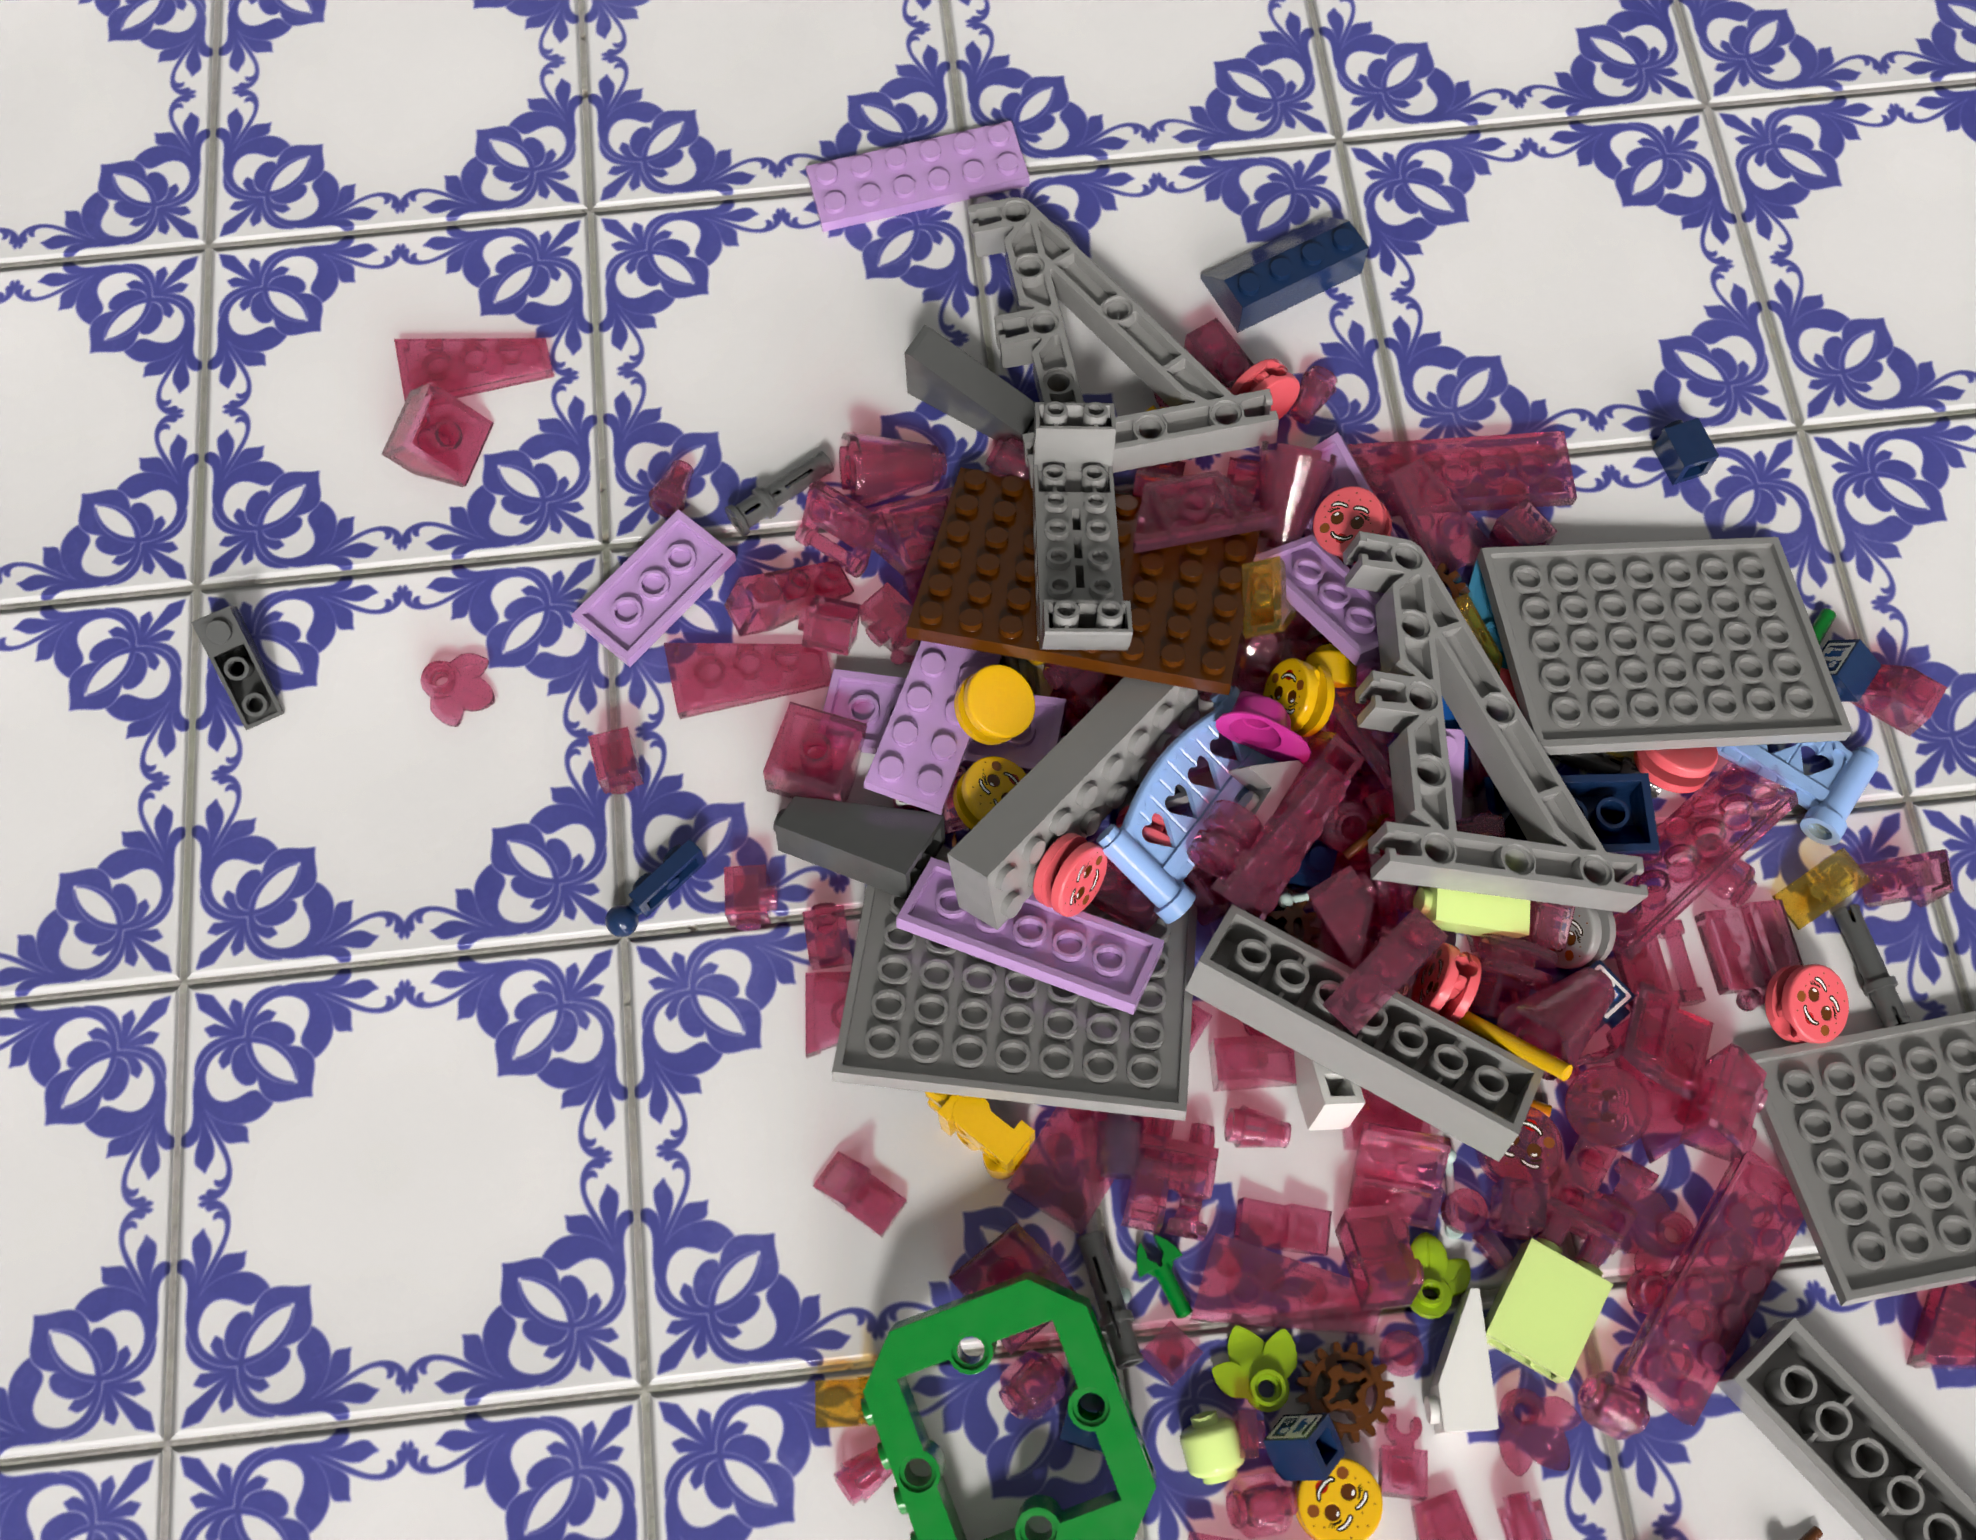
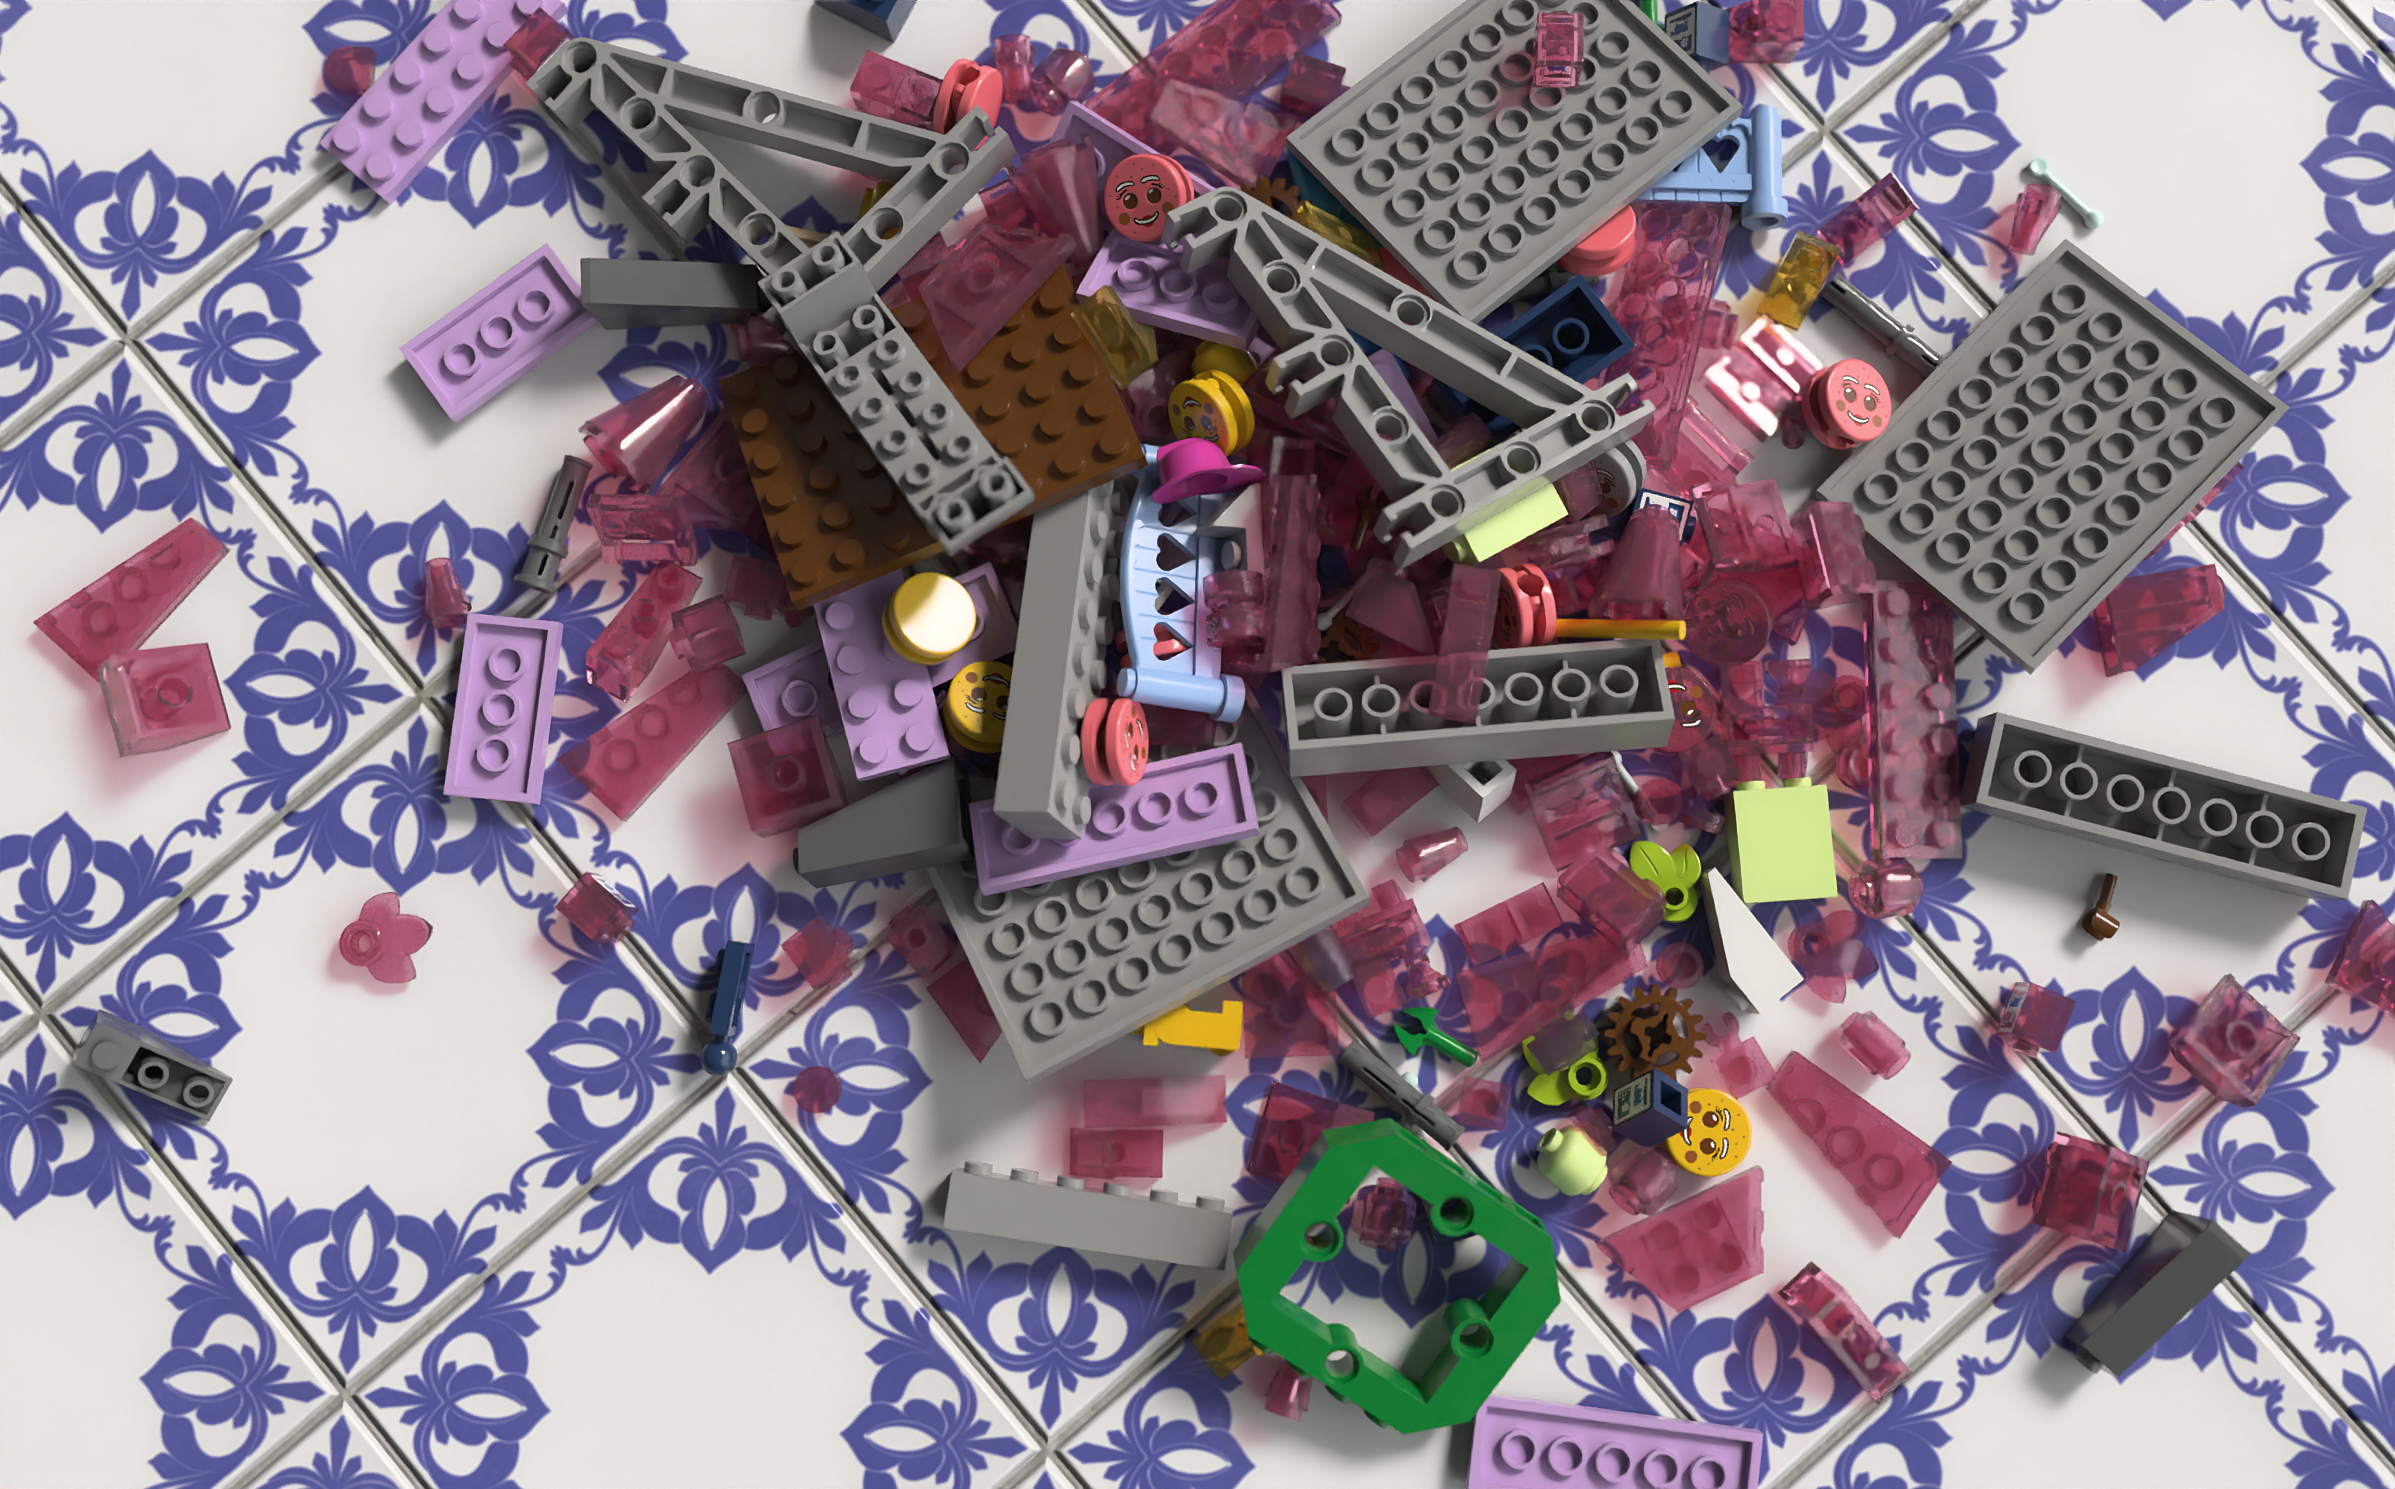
camera: 30 degrees left, 15 degrees up
(674, 994) = (817, 1089): none -> clear pink tile
(805, 1227) = (1088, 1217): none -> light grey brick
(834, 350) = (499, 333): none -> lavender plate
(860, 136) = (351, 69): none -> clear pink tile
(915, 1171) = (1154, 1101): none -> clear pink slope
(993, 186) = (536, 43): none -> clear pink brick
(1267, 1344) = (1563, 1041): none -> brick
(1343, 416) = (1061, 78): none -> clear pink head
(1728, 607) = (1558, 49): none -> clear pink brick

